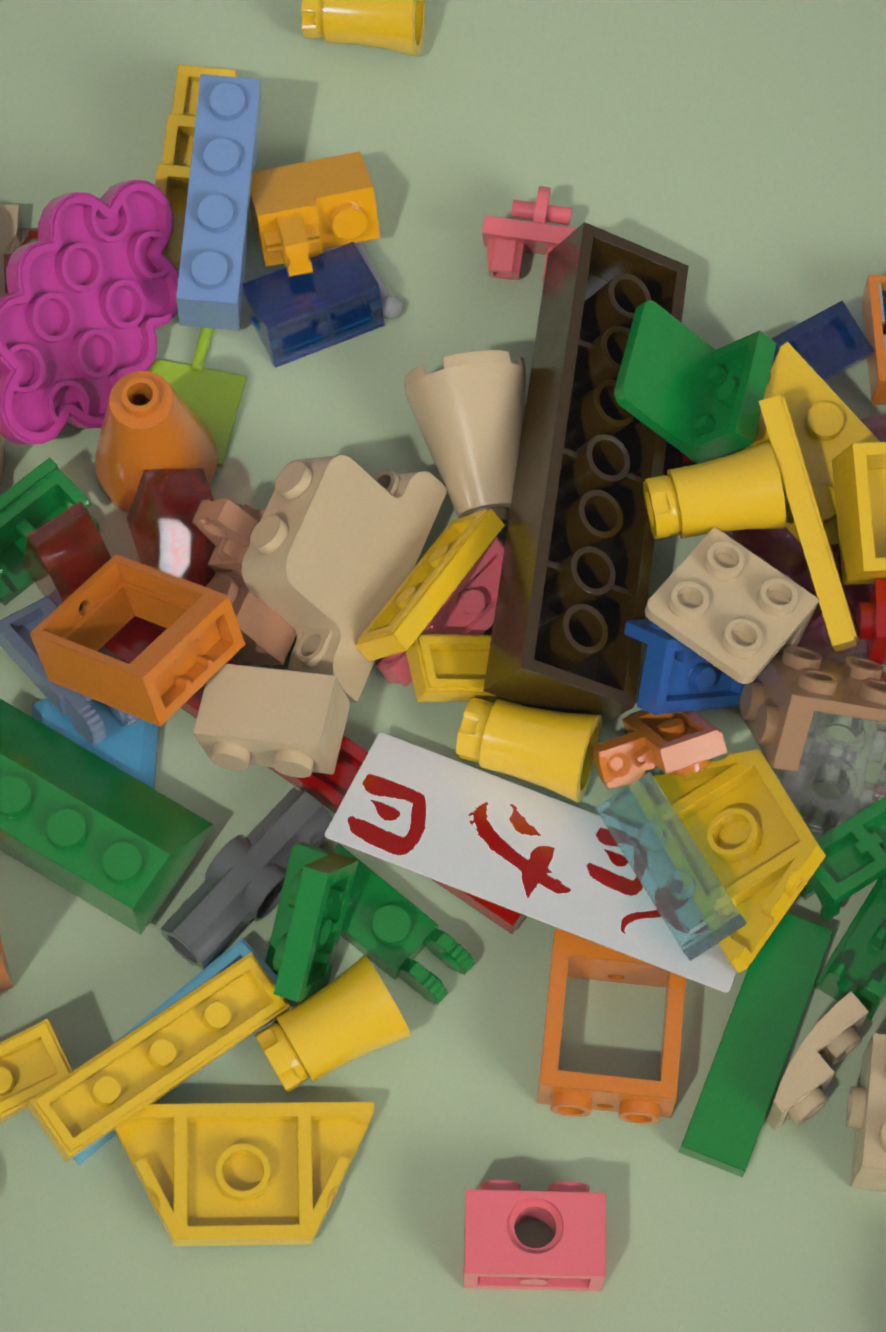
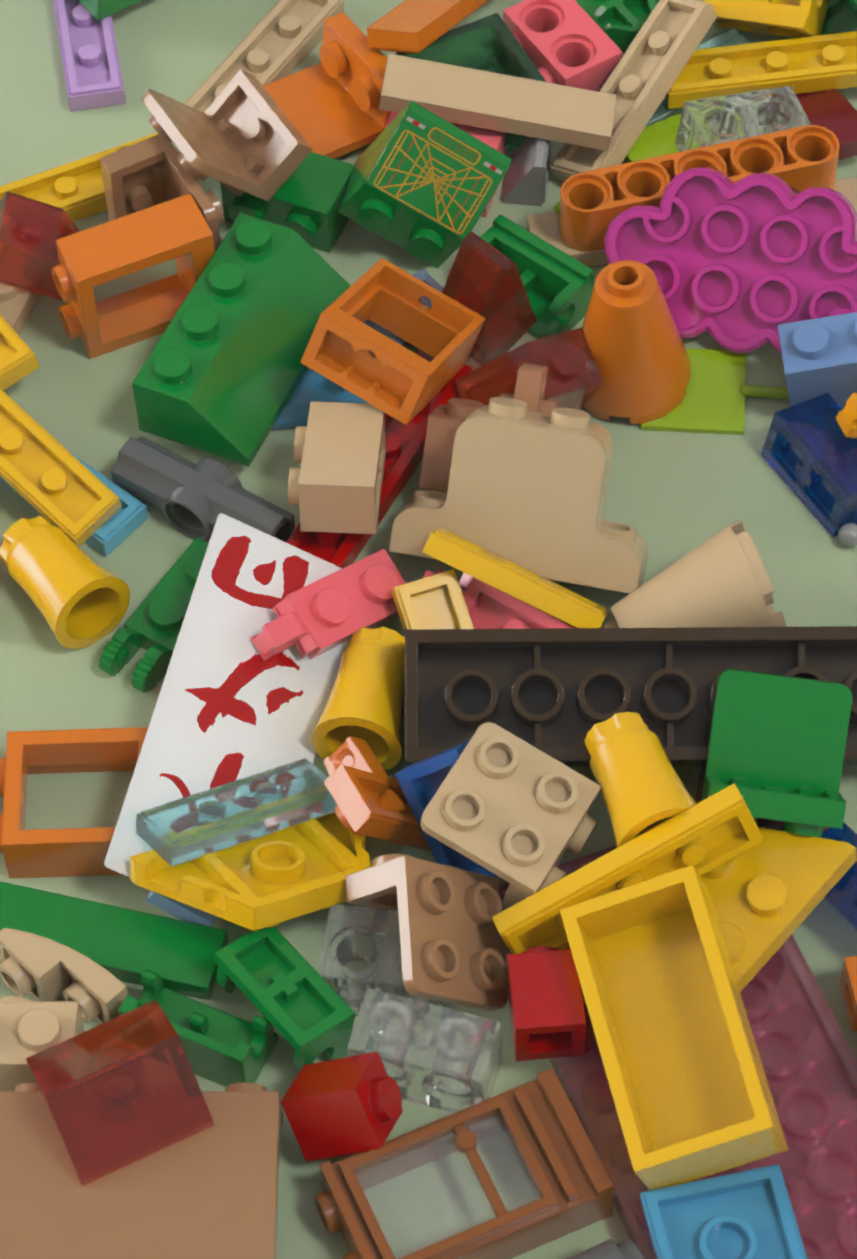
camera: 85 degrees right, 10 degrees down
(309, 920) = (145, 532): green bracket -> none
(427, 758) = (332, 608): none -> coral hinge

